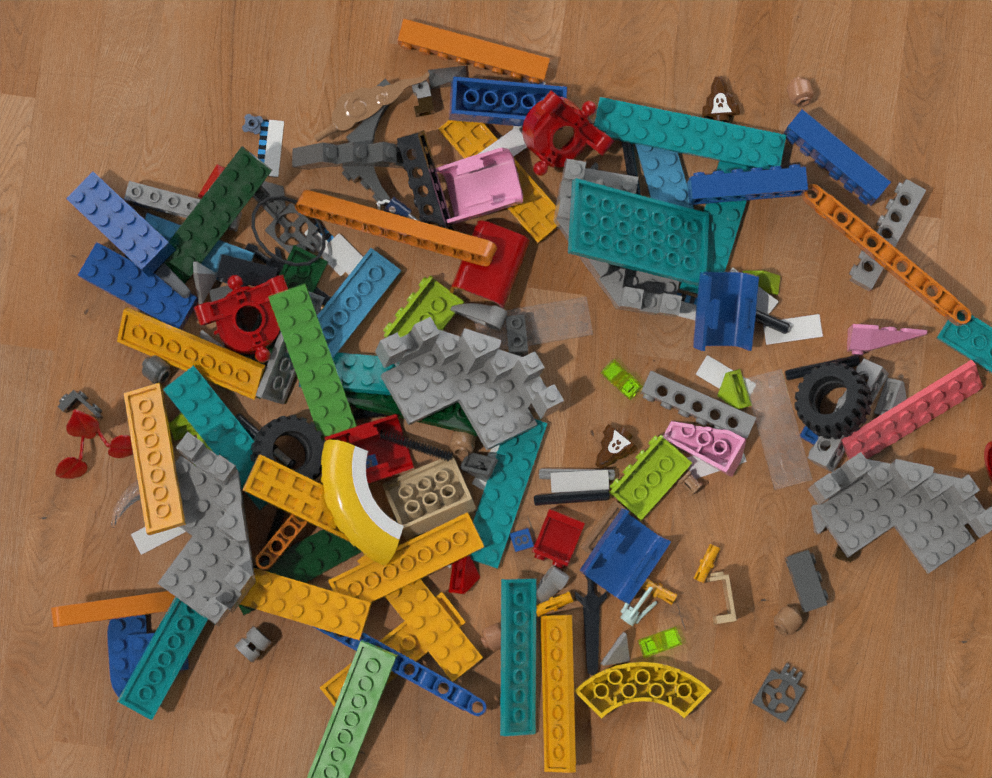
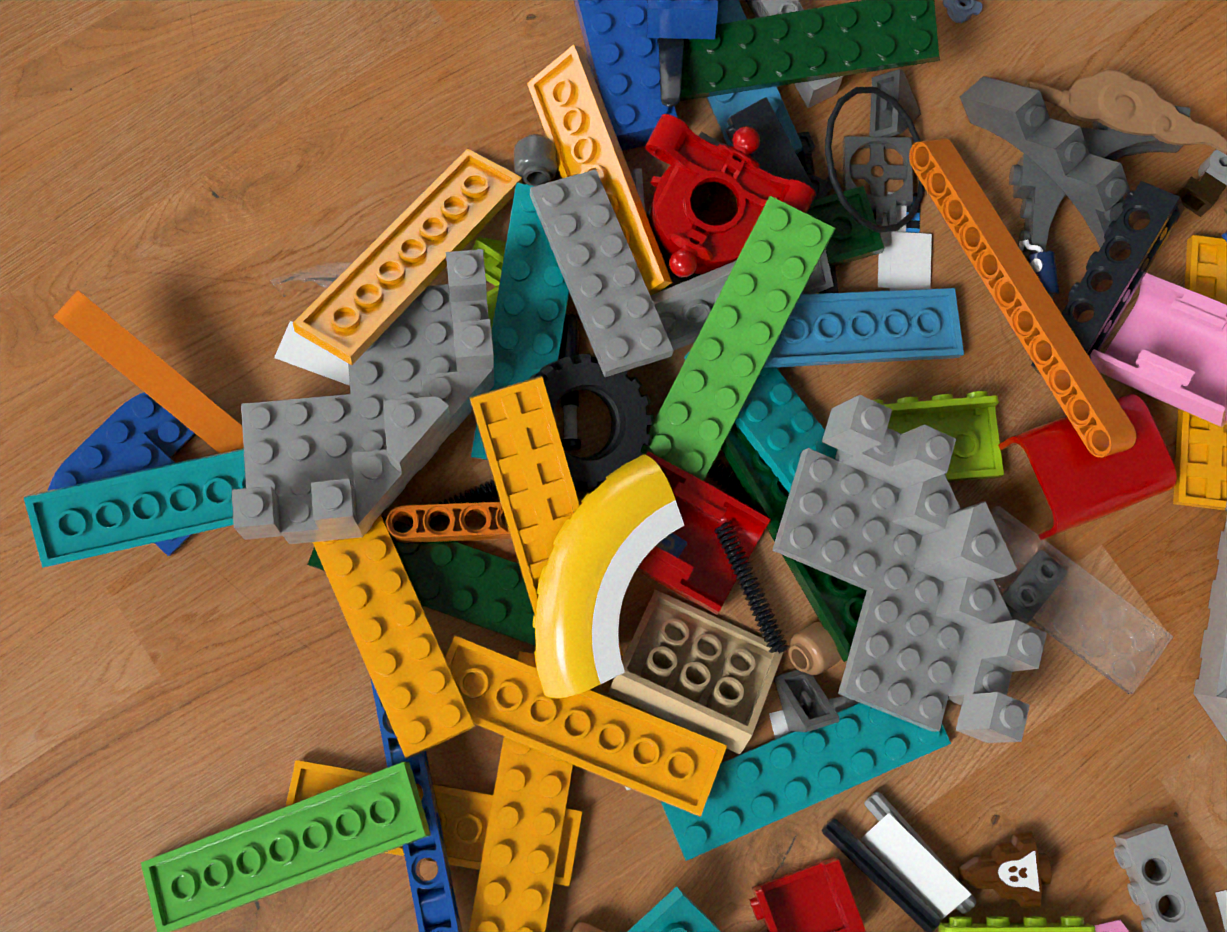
camera: 50 degrees right, 5 degrees down
(68, 401) = (401, 91): dark grey bracket -> none
(87, 427) = (366, 114): red plant -> none
(204, 280) = (710, 109): light grey slope -> none
(234, 390) = (601, 273): none -> light grey plate
(258, 639) = (289, 612): light grey wheel -> none
(270, 144) = (956, 53): white sticker -> none
(463, 576) = (630, 821): red slope -> none
(483, 314) = (1014, 517): light grey piece -> none
(521, 540) = (756, 858): blue tile -> none
(621, 379) = (1106, 792): clear neon green slope -> none

